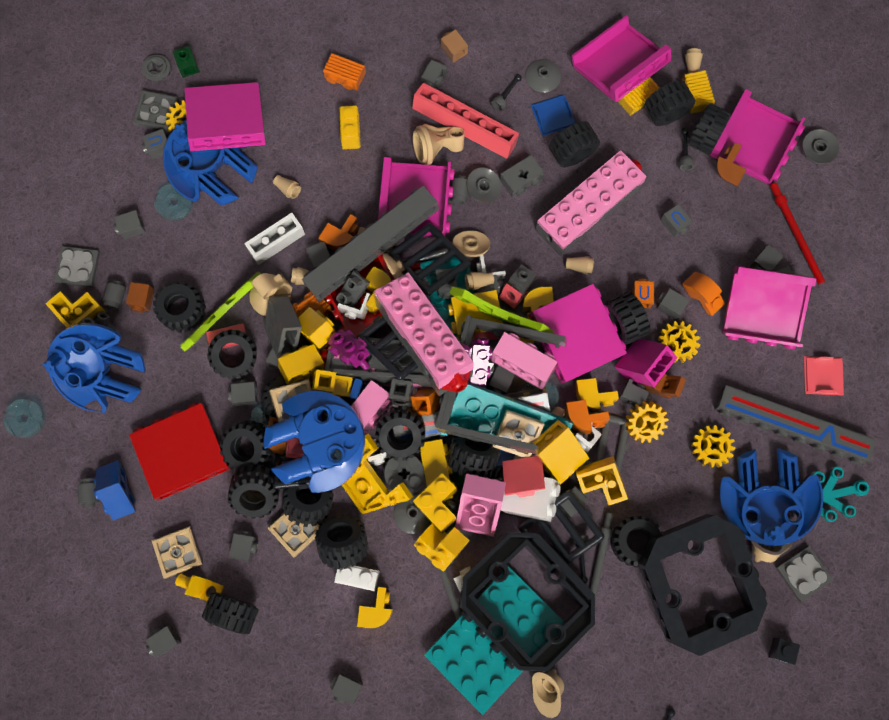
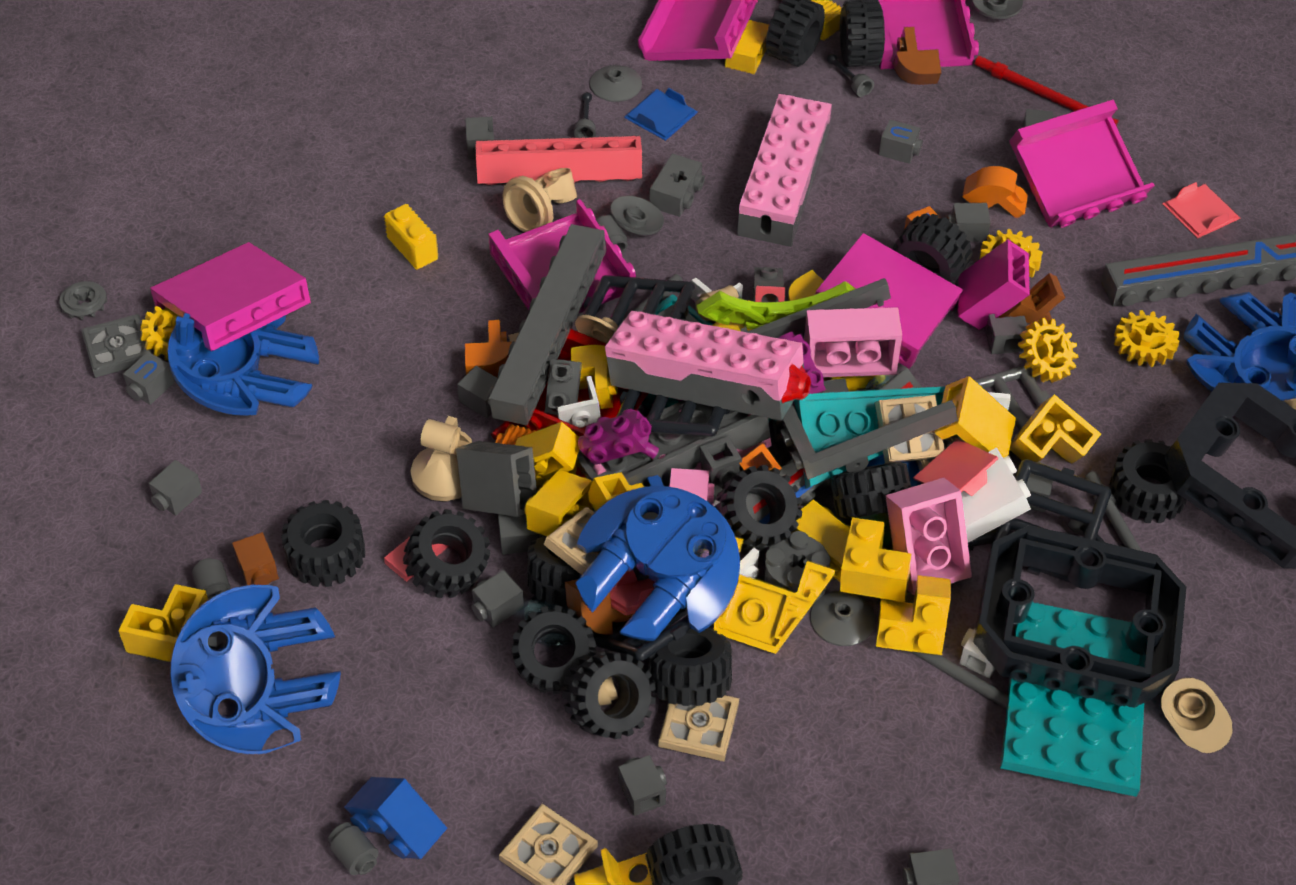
camera: 35 degrees left, 25 degrees down
(14, 415) = (184, 828): clear light blue plate -> none
(77, 267) = (126, 580): light grey piece -> none
(172, 212) = (220, 447): clear light blue plate -> none
(178, 451) = (457, 717): red panel -> none
(186, 61) = (124, 271): dark green brick -> none
(192, 339) = (389, 515): lime tile -> none
(275, 238) = (403, 398): white brick -> none
(288, 187) = (373, 339): tan cone -> none
(298, 275) = (477, 424): tan cone -> none
(341, 542) = (780, 686): black tyre -> none
(344, 72) = (357, 185): orange brick -> none
(358, 577) = (832, 726): white brick -> none
(375, 617) = (896, 757): yellow brick -> none
(454, 45) = (480, 97): medium nougat brick -> none
(472, 243) = (680, 272): tan dish -> none
(574, 144) = (717, 117): black tyre -> none
(580, 264) = (825, 238): tan cone -> none
(582, 421) = (988, 375): orange brick -> none
(588, 391) = (953, 362): yellow brick -> none

